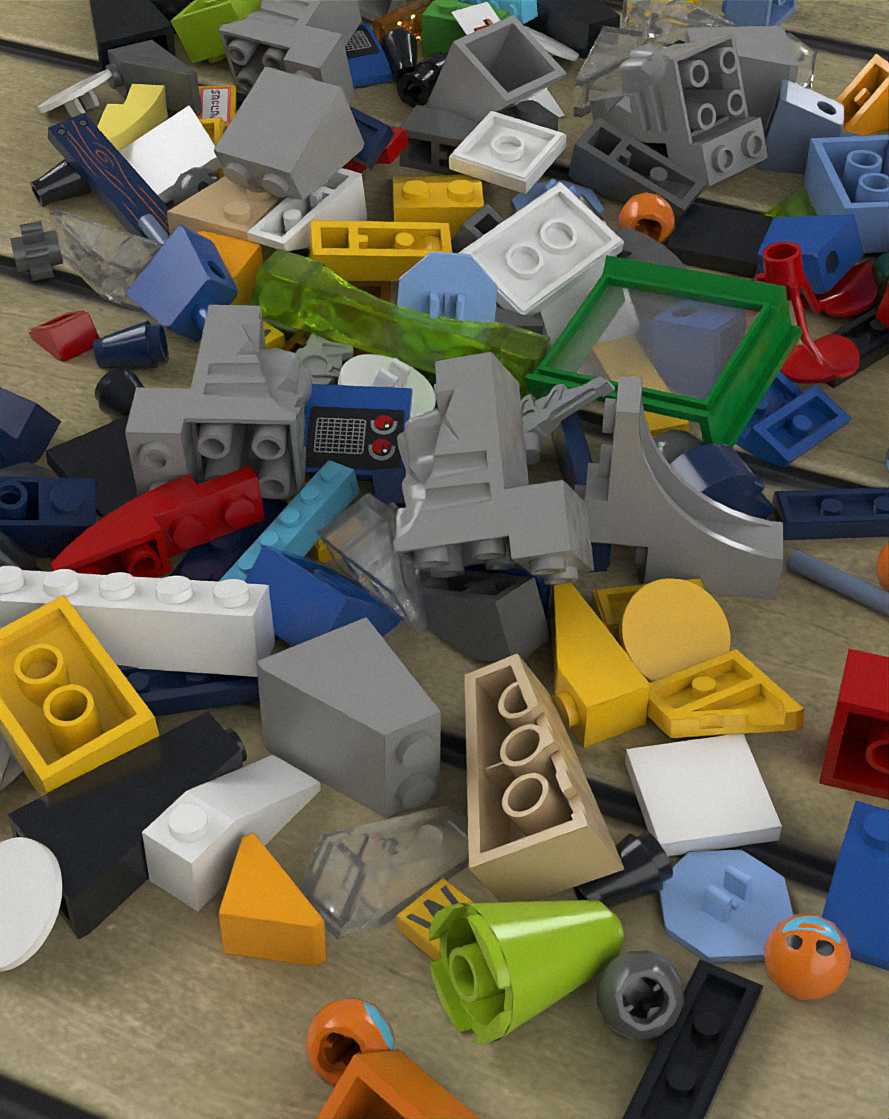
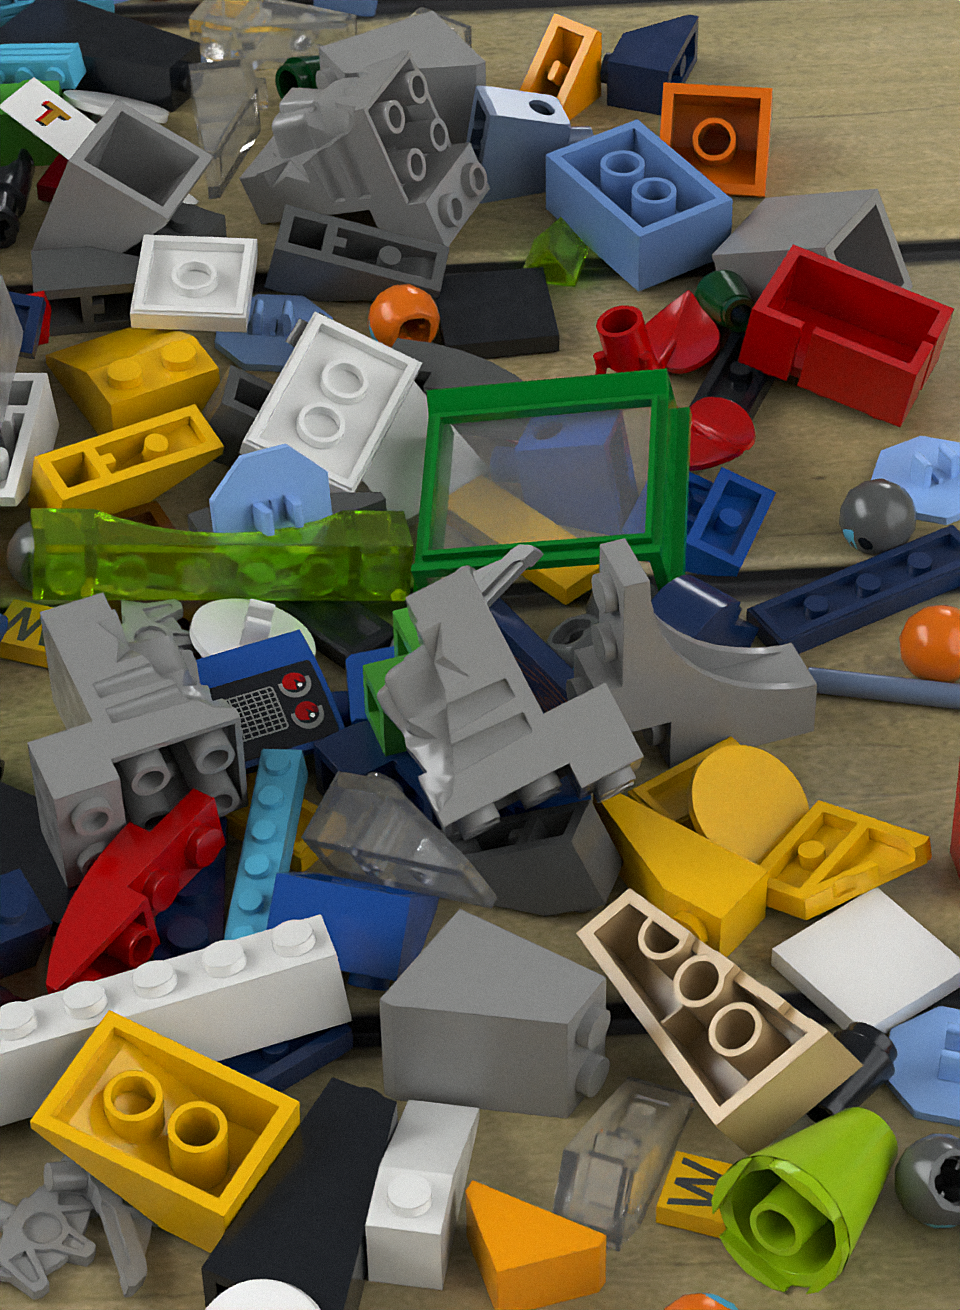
camera: 25 degrees left, 0 degrees up
(827, 245) = (629, 278): blue torso -> none

